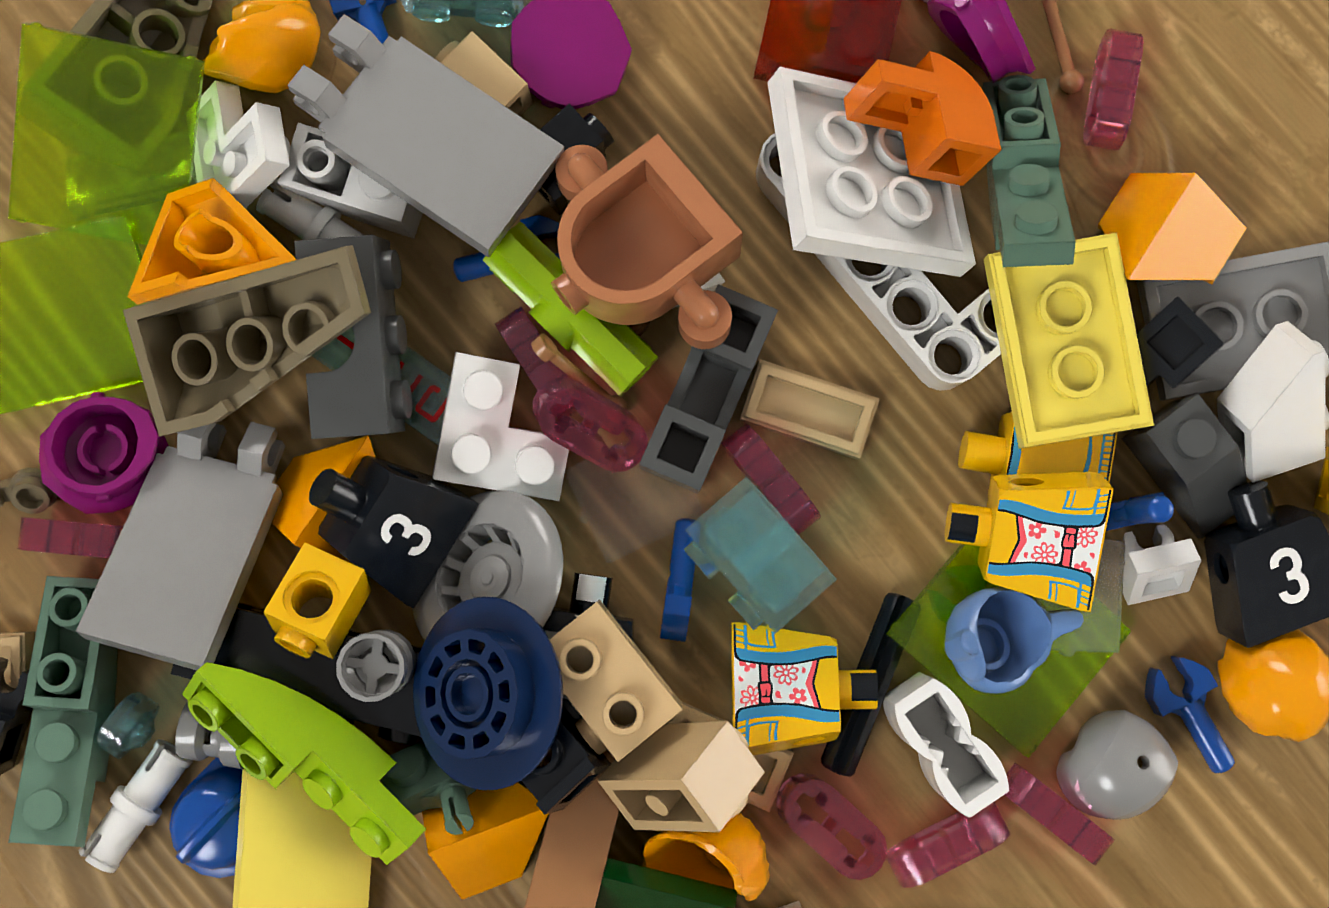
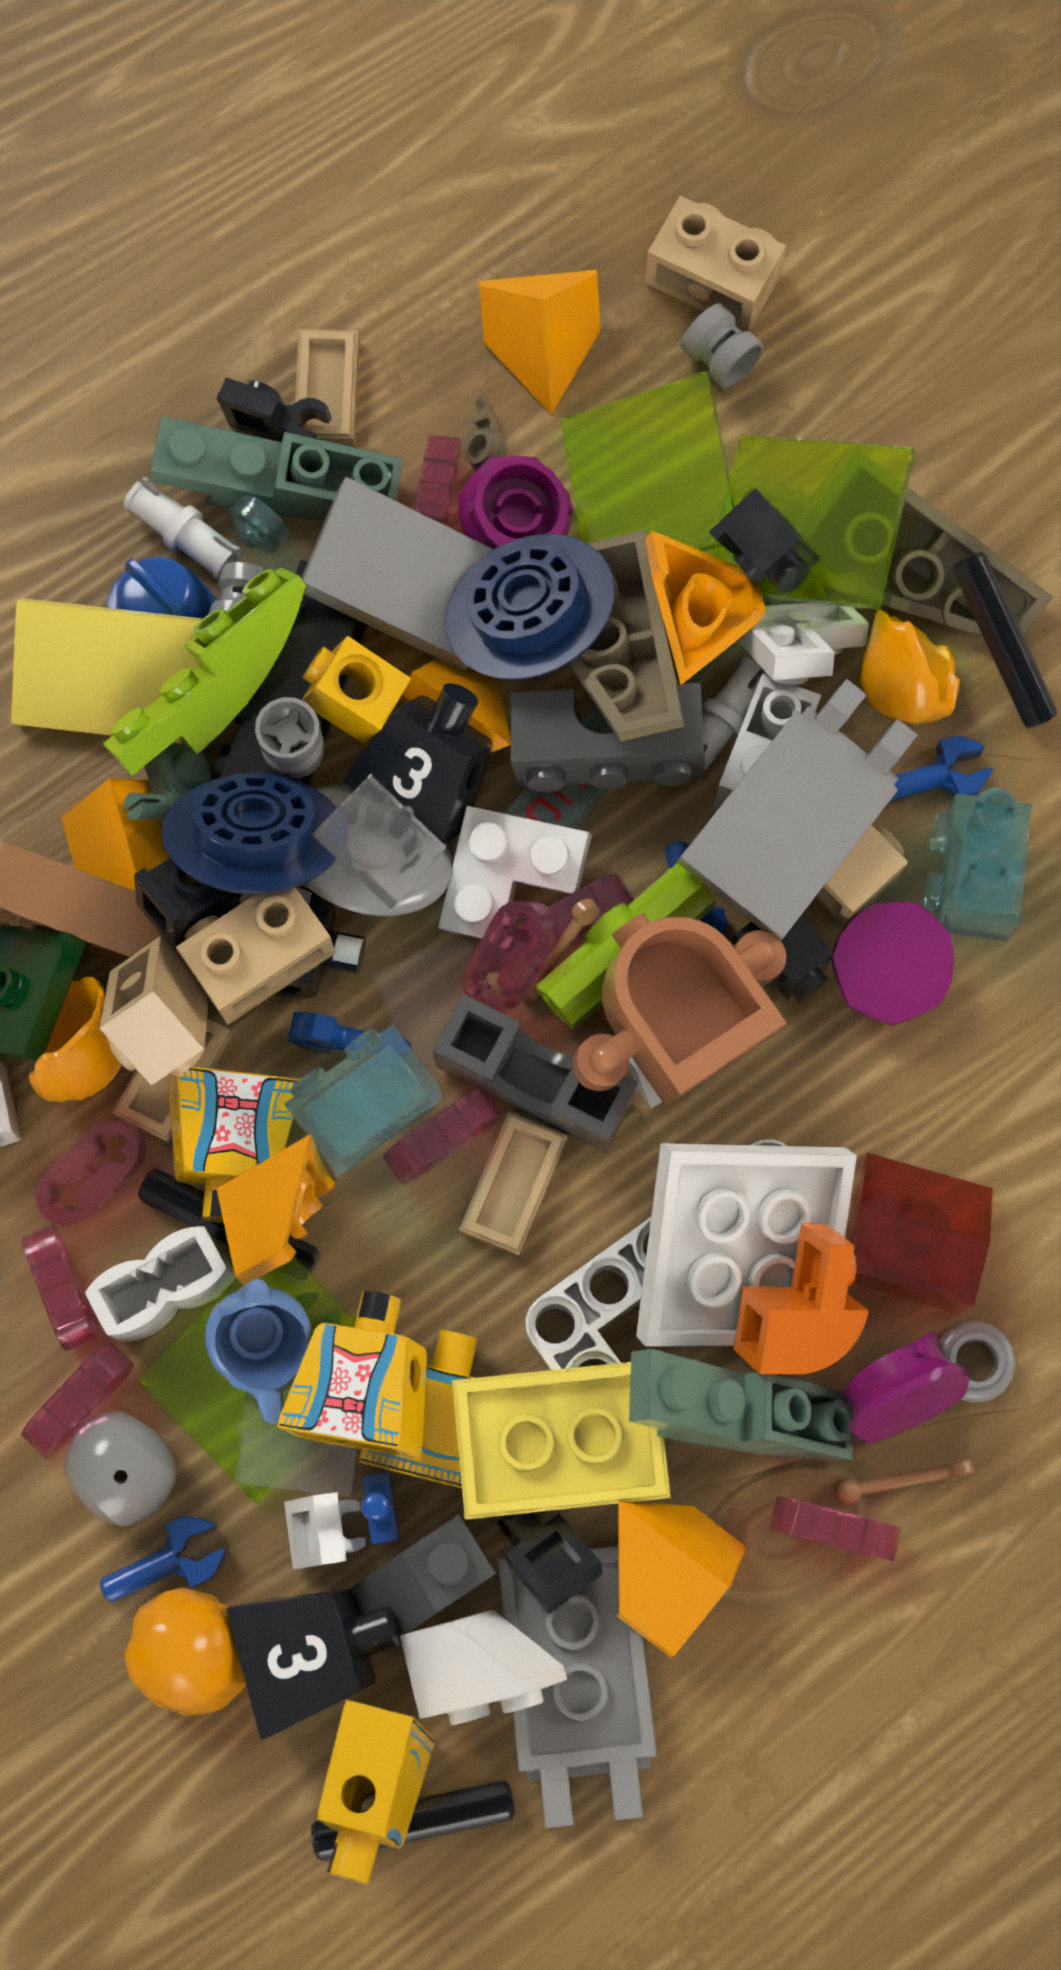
camera: 95 degrees right, 10 degrees down
(135, 177) = (765, 543): none -> black brick
(198, 431) = (523, 592): none -> dark blue wheel
(484, 561) = (379, 841): none -> clear piece
(880, 643) = (270, 1205): none -> light orange slope

